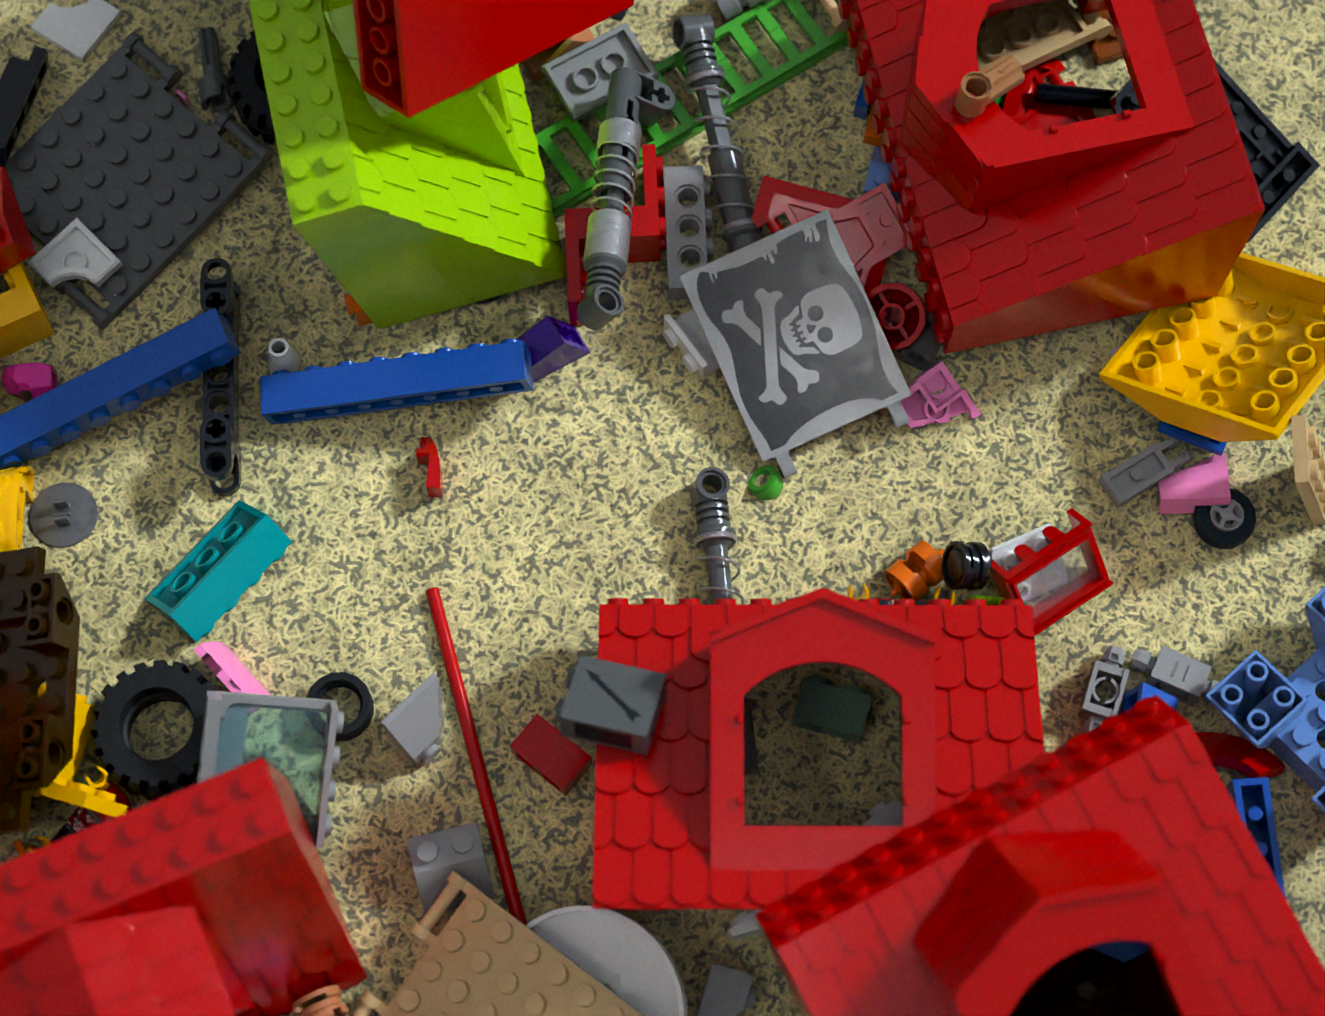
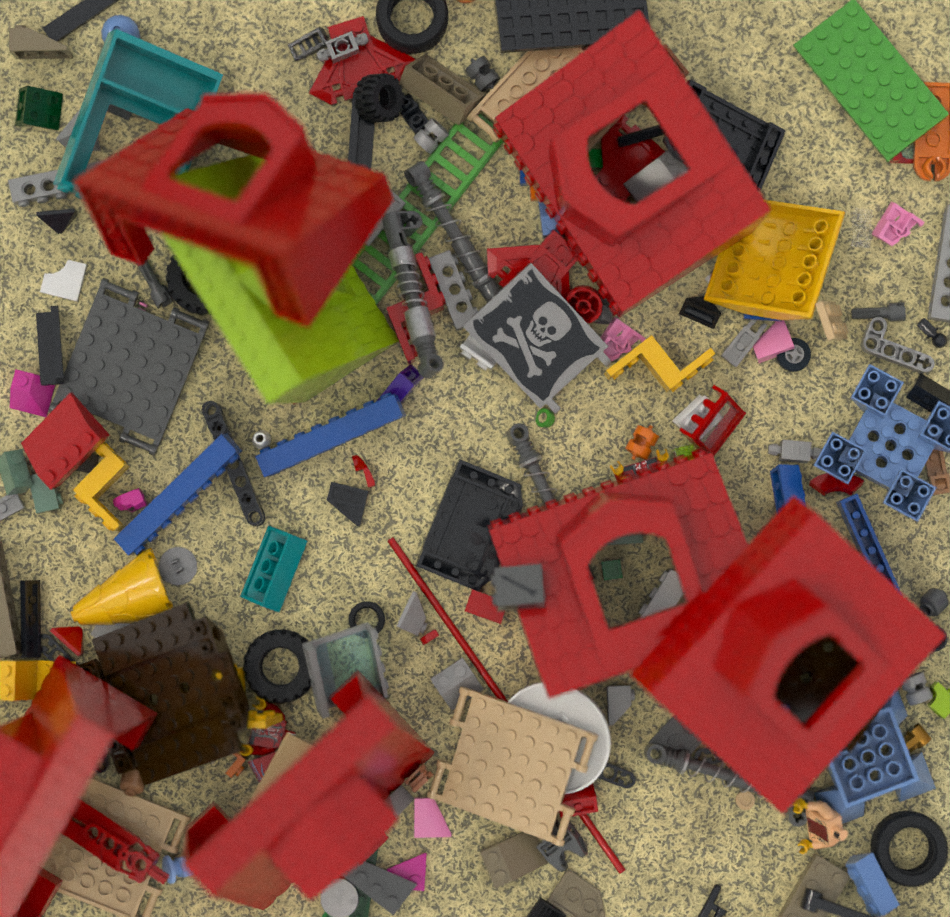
camera: 25 degrees left, 15 degrees up
(75, 255) = (125, 421): white tile -> none
(229, 668) = (306, 623): bright pink slope -> none
(386, 504) = (348, 501): none -> black wing
(434, 772) = (428, 637): none -> red tile
(554, 605) = (458, 538): none -> black slope
(791, 769) = (611, 569): none -> green tile
(965, 565) = (668, 434): black wheel -> none
(988, 85) = (604, 189): medium nougat piece -> none
(989, 452) = (659, 364): none -> yellow bracket
(1086, 398) = (700, 311): none -> black slope
(1108, 670) = (760, 494): light grey piece -> none

